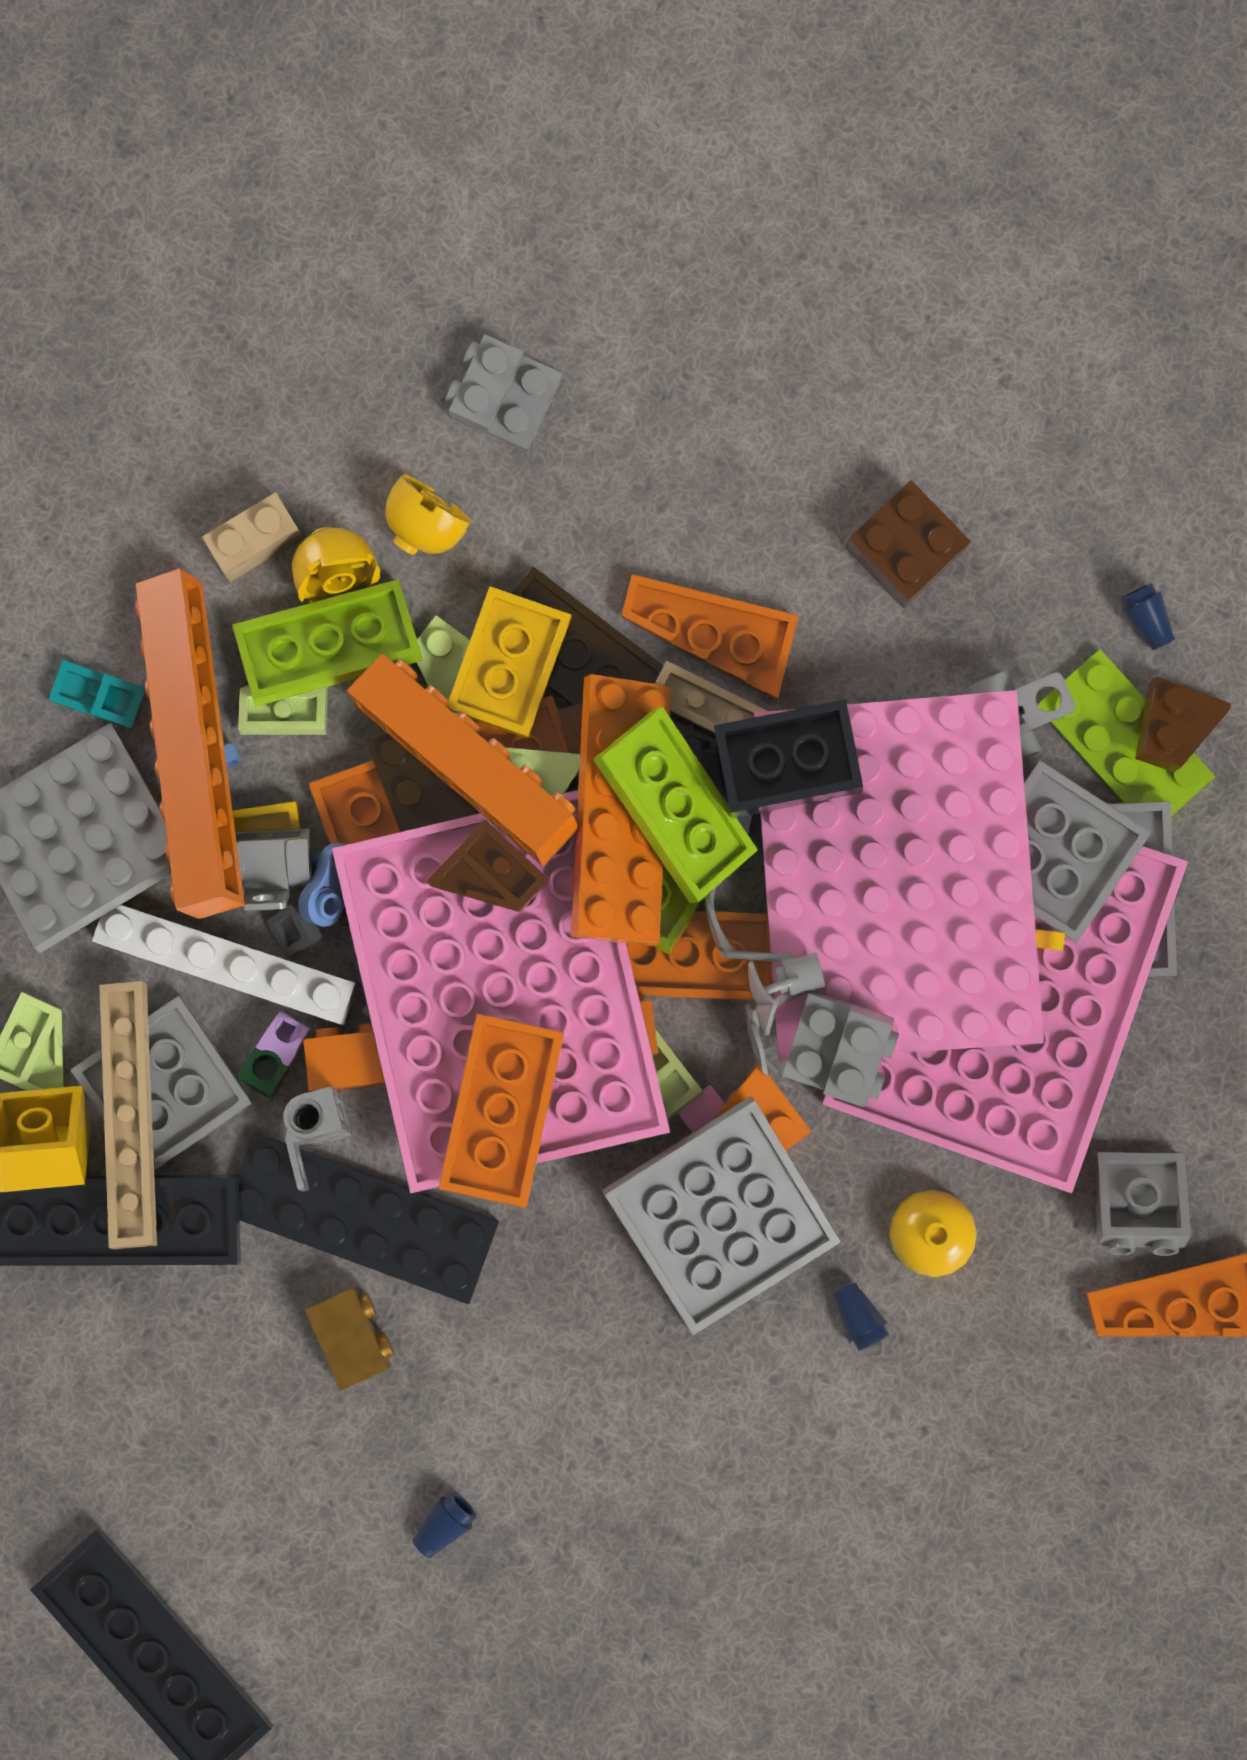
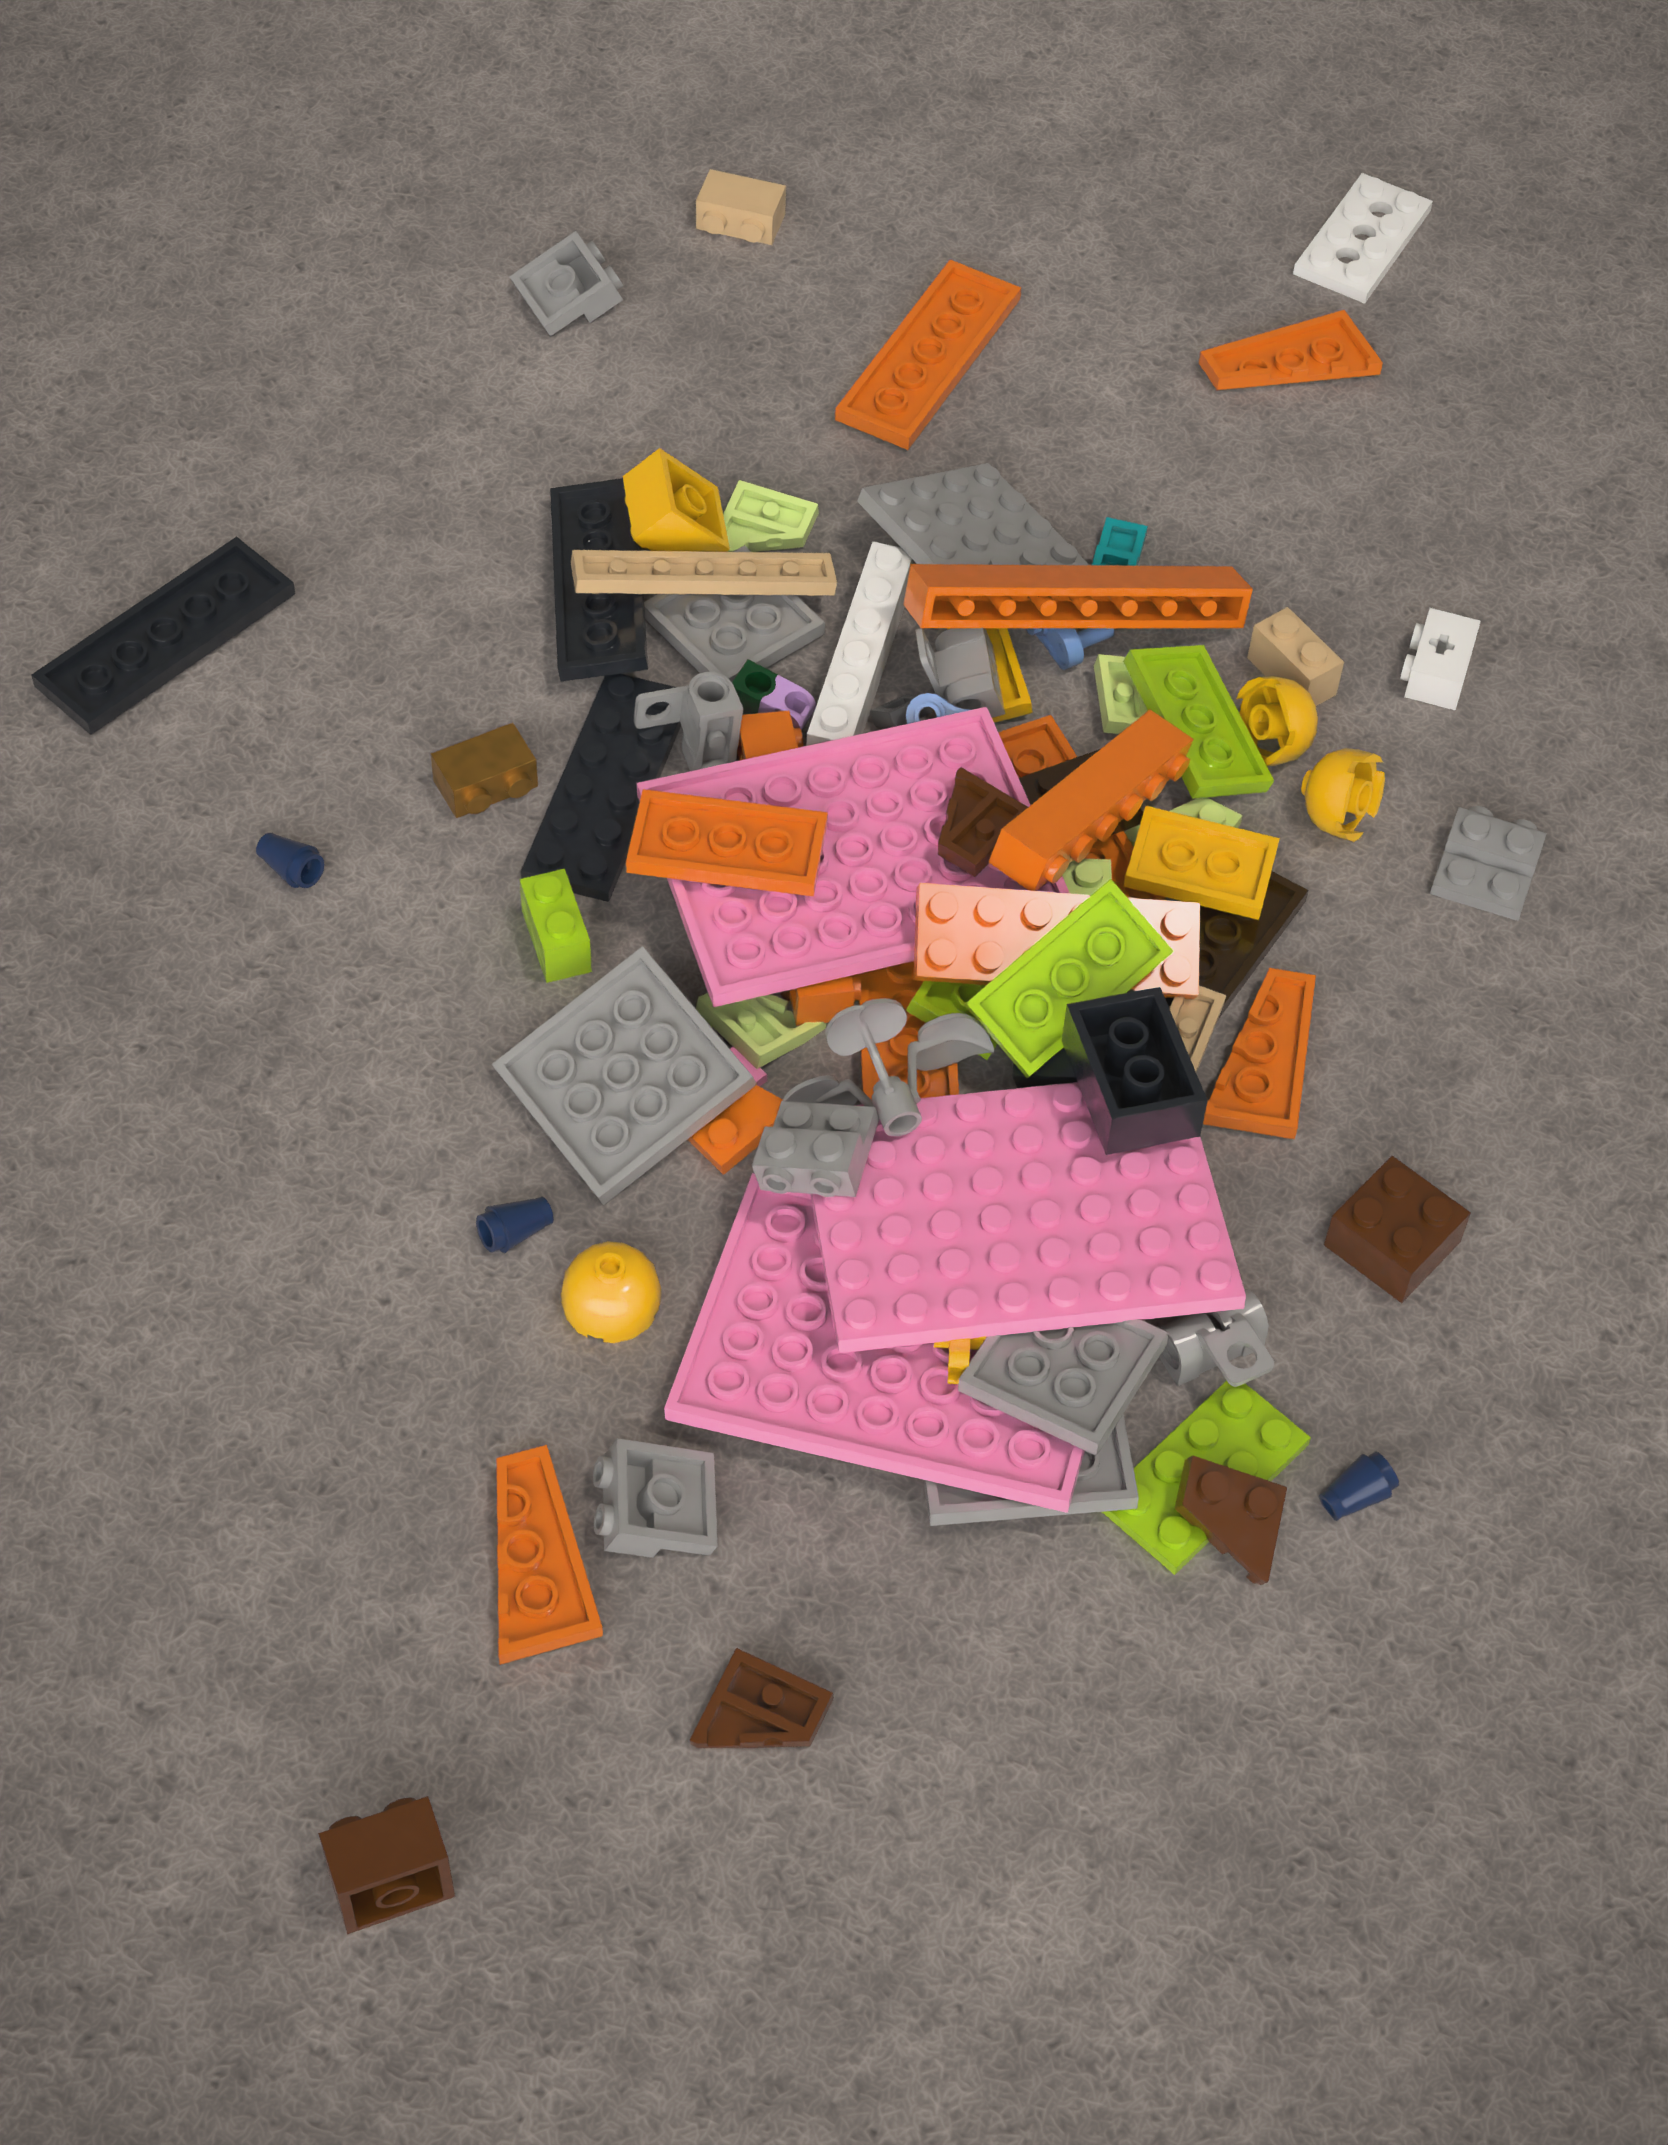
camera: 85 degrees right, 30 degrees down
(240, 376) = (1441, 658): none -> white brick
(542, 1273) = (555, 925): none -> lime brick

